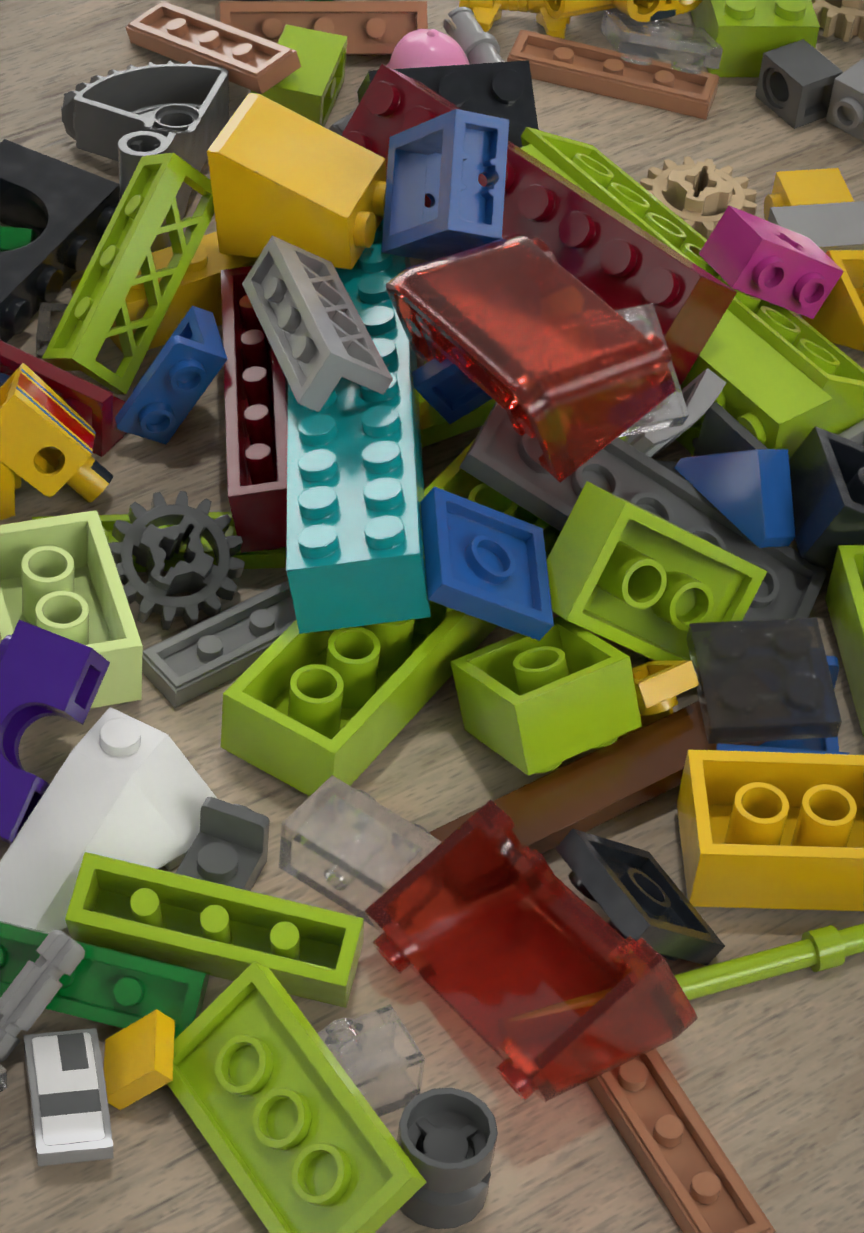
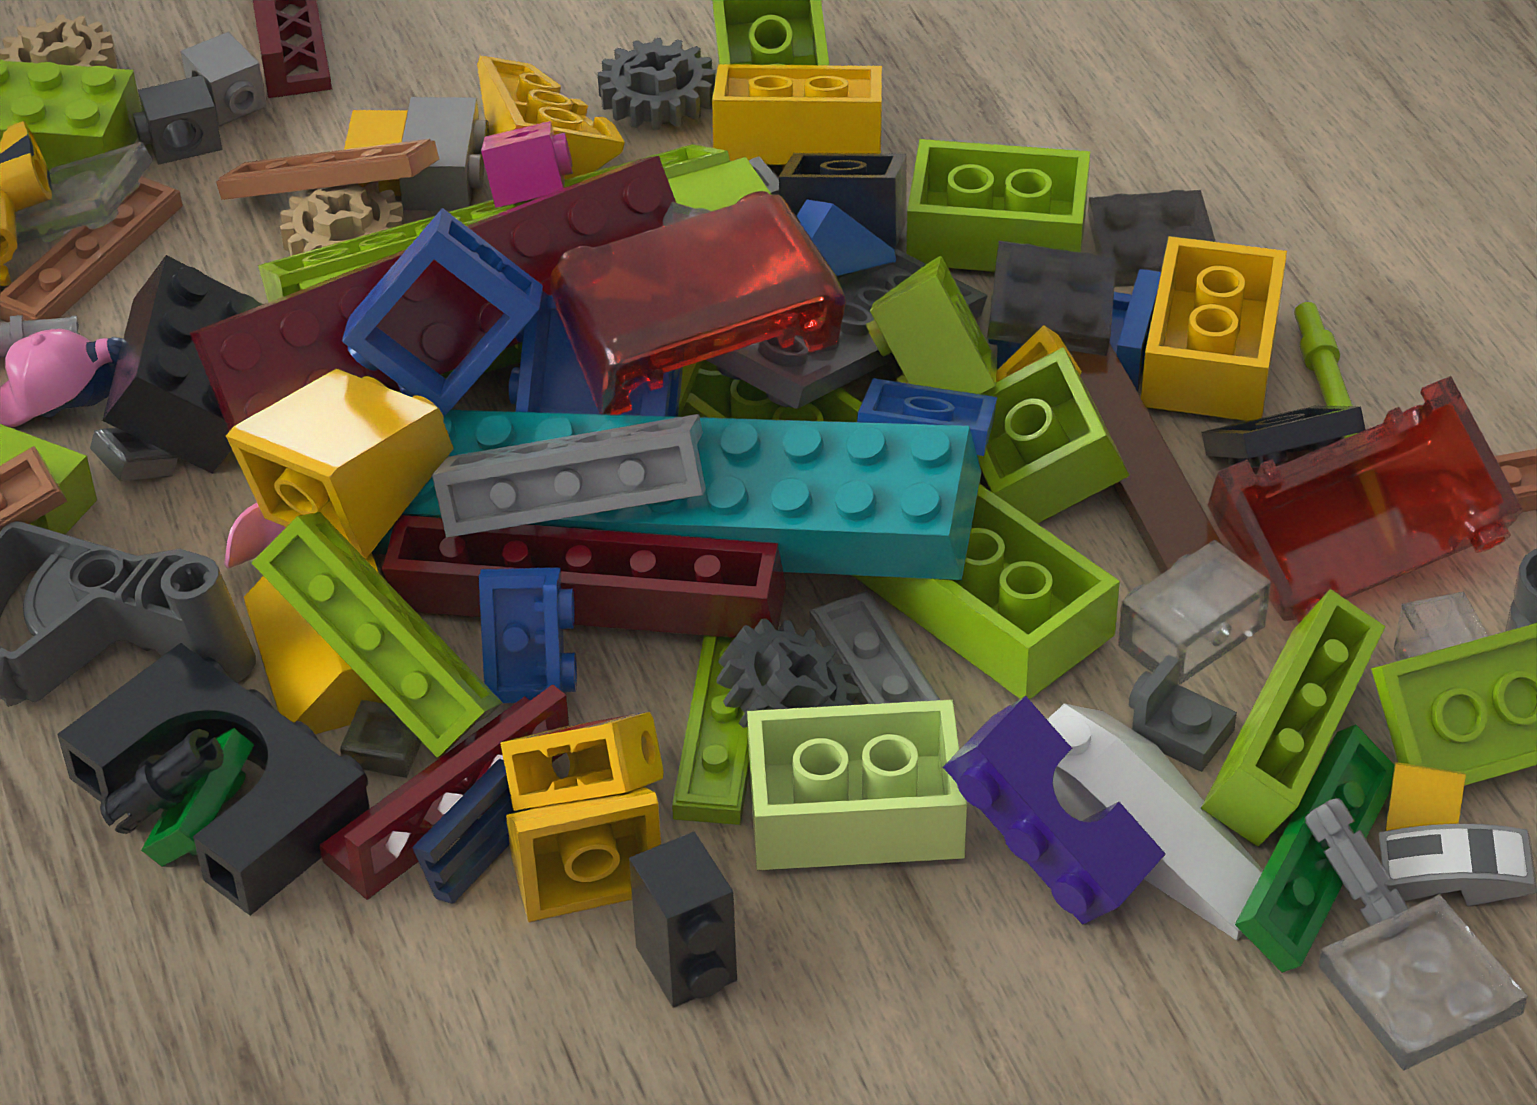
camera: 70 degrees left, 0 degrees up
(746, 168) = (328, 169): none -> nougat tile

